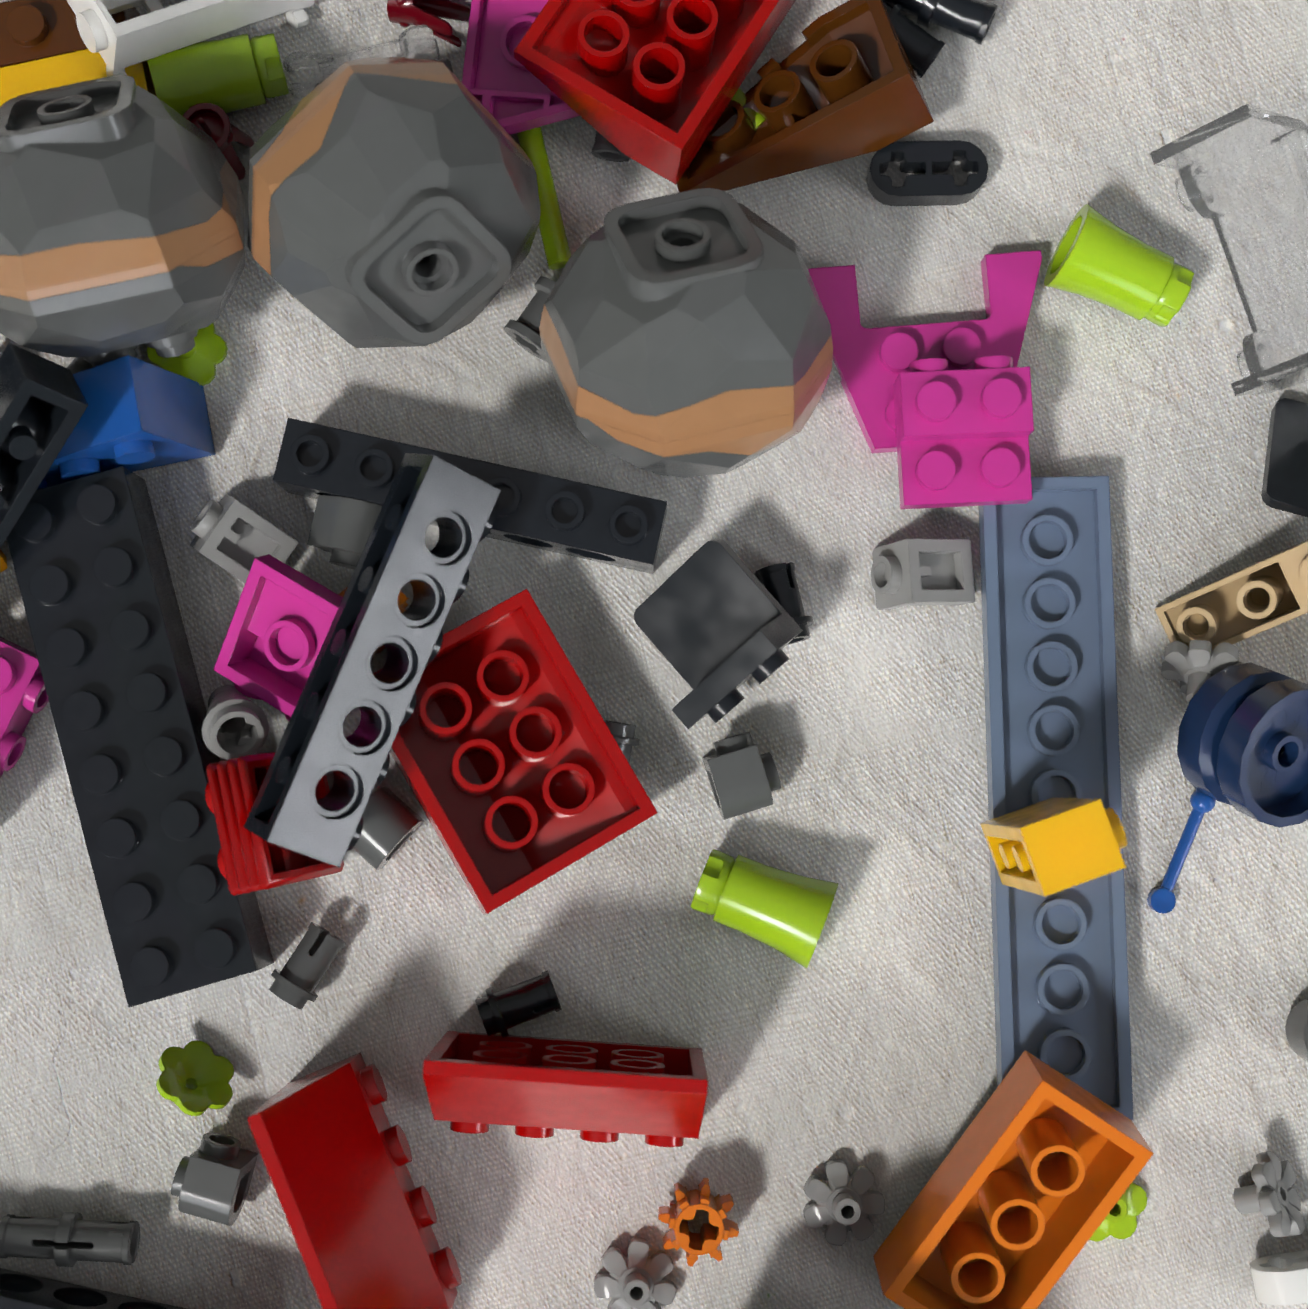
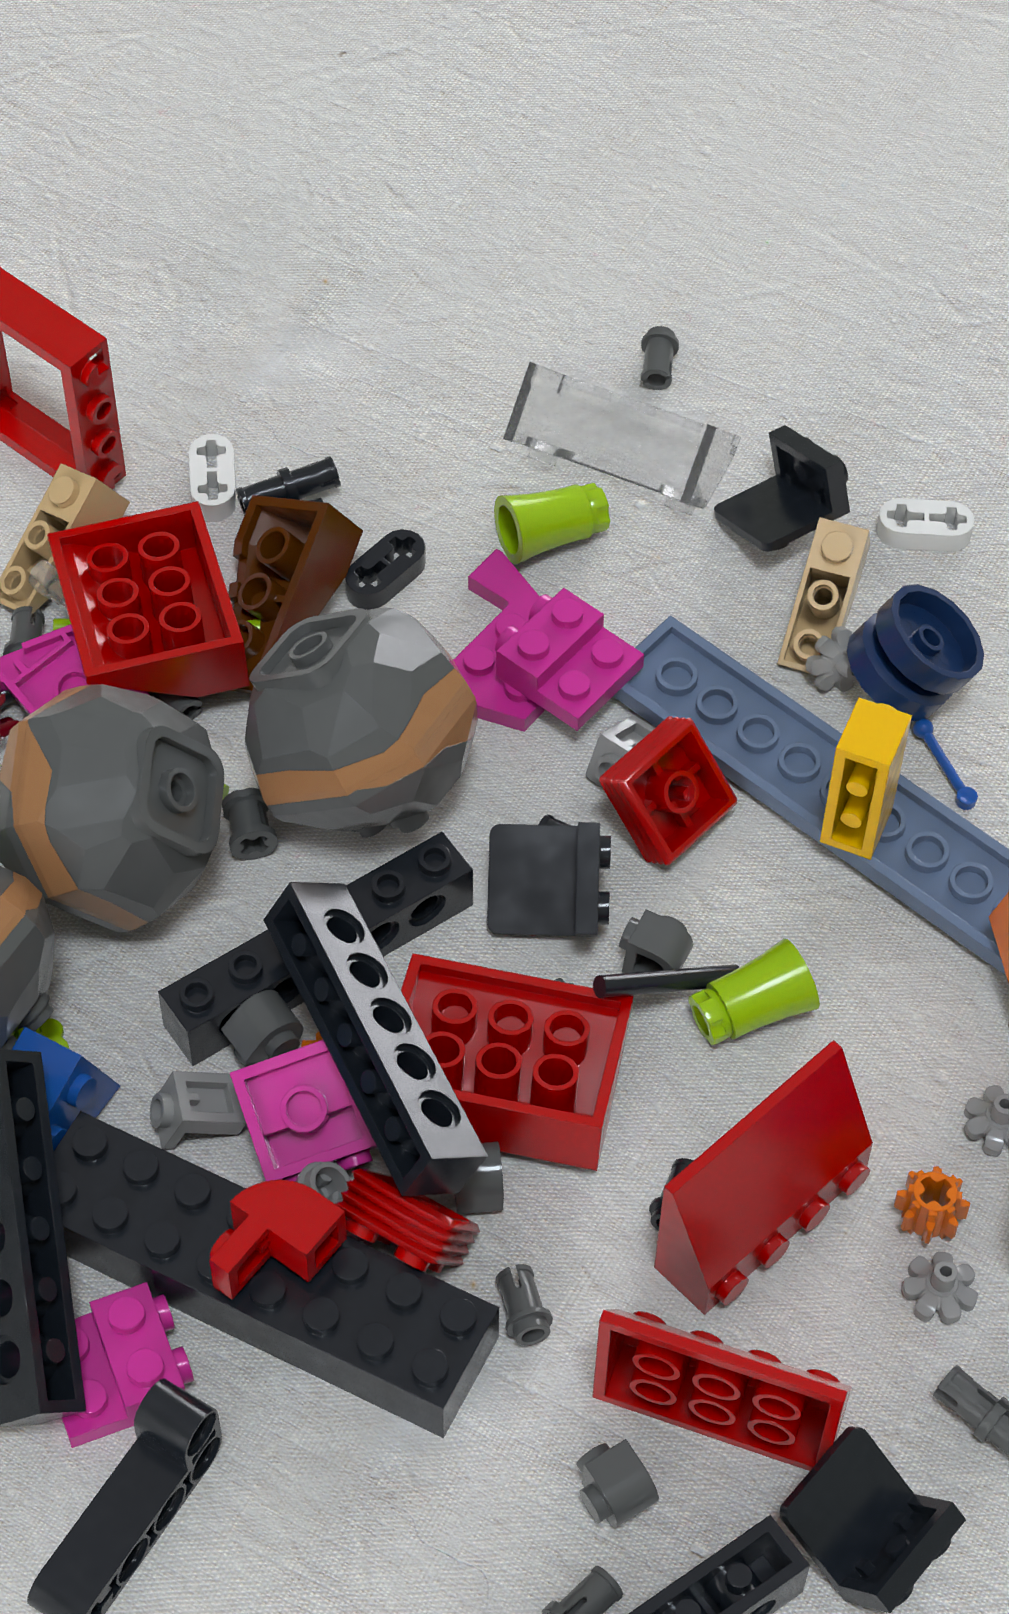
camera: 45 degrees left, 30 degrees down
(145, 747) = (280, 1222): none -> red brick
(195, 1078) = (531, 1442): lime plant -> none
(704, 822) = (658, 981): none -> black bar
(902, 651) = (668, 790): none -> red brick

